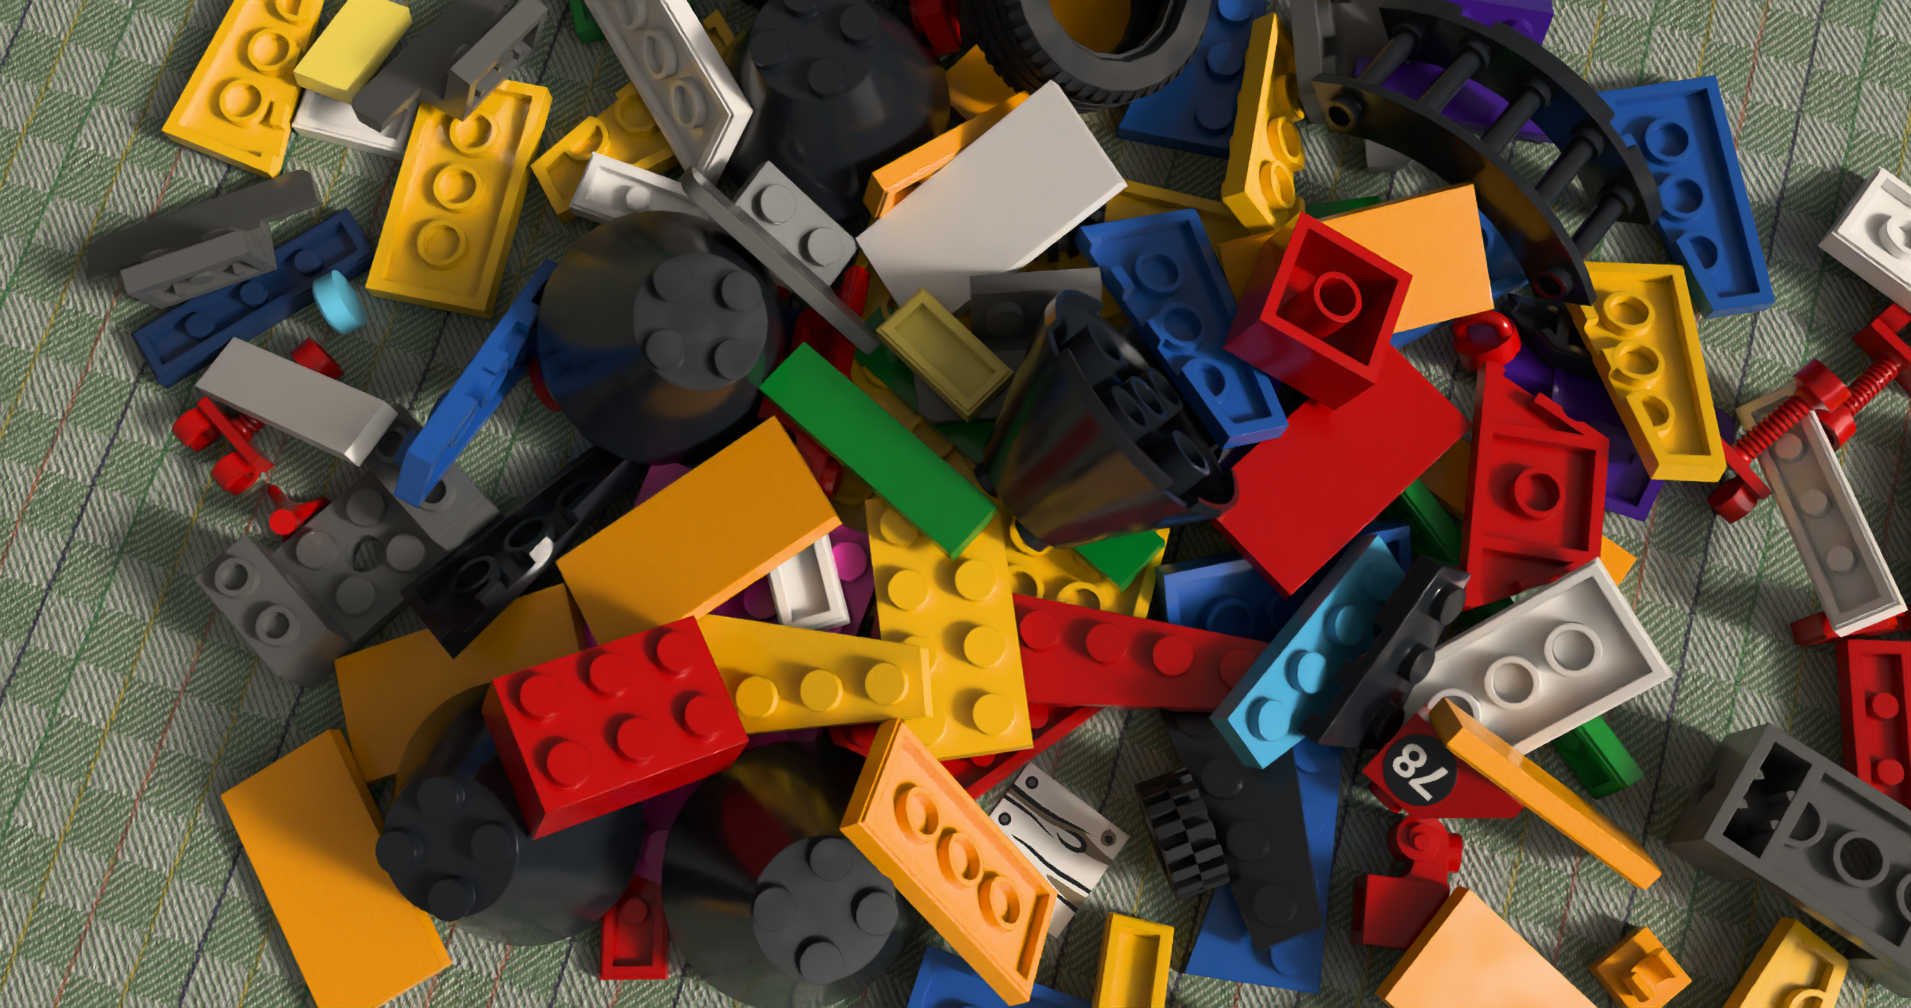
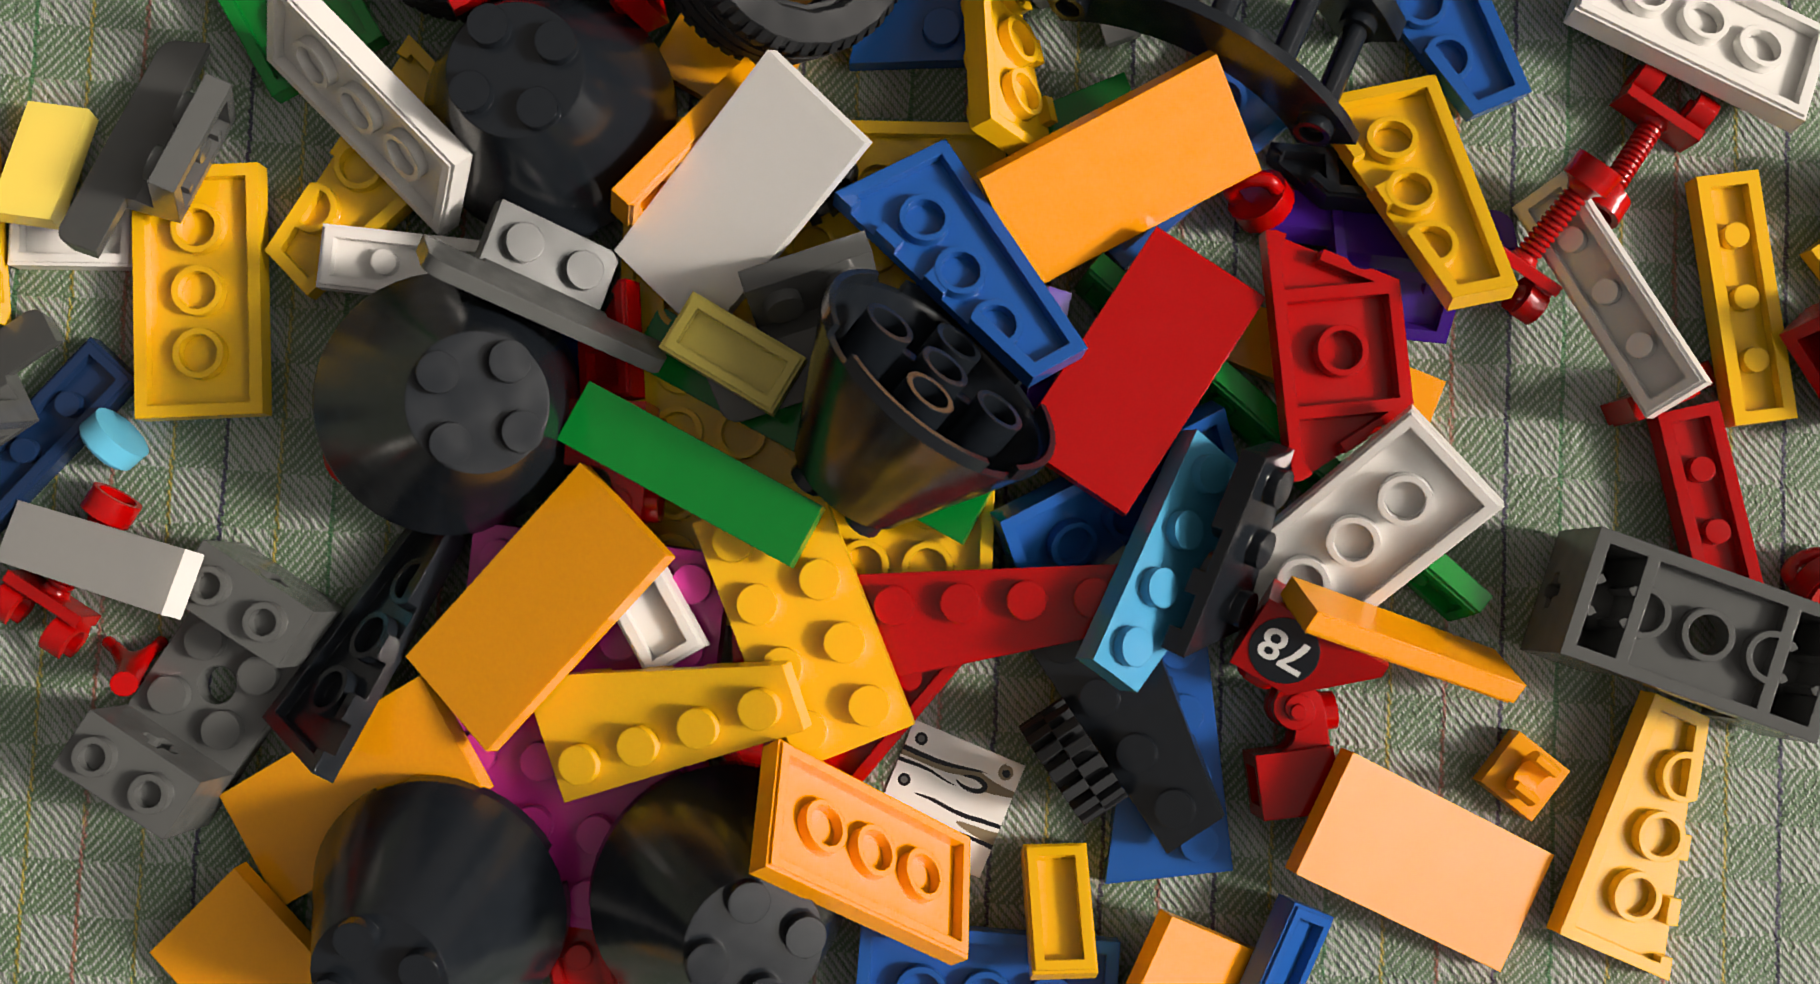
camera: 20 degrees left, 10 degrees up
(473, 398) = (279, 507): blue wing -> none
(612, 725) = (504, 823): red brick -> none
(1318, 311) = (1092, 227): red brick -> none

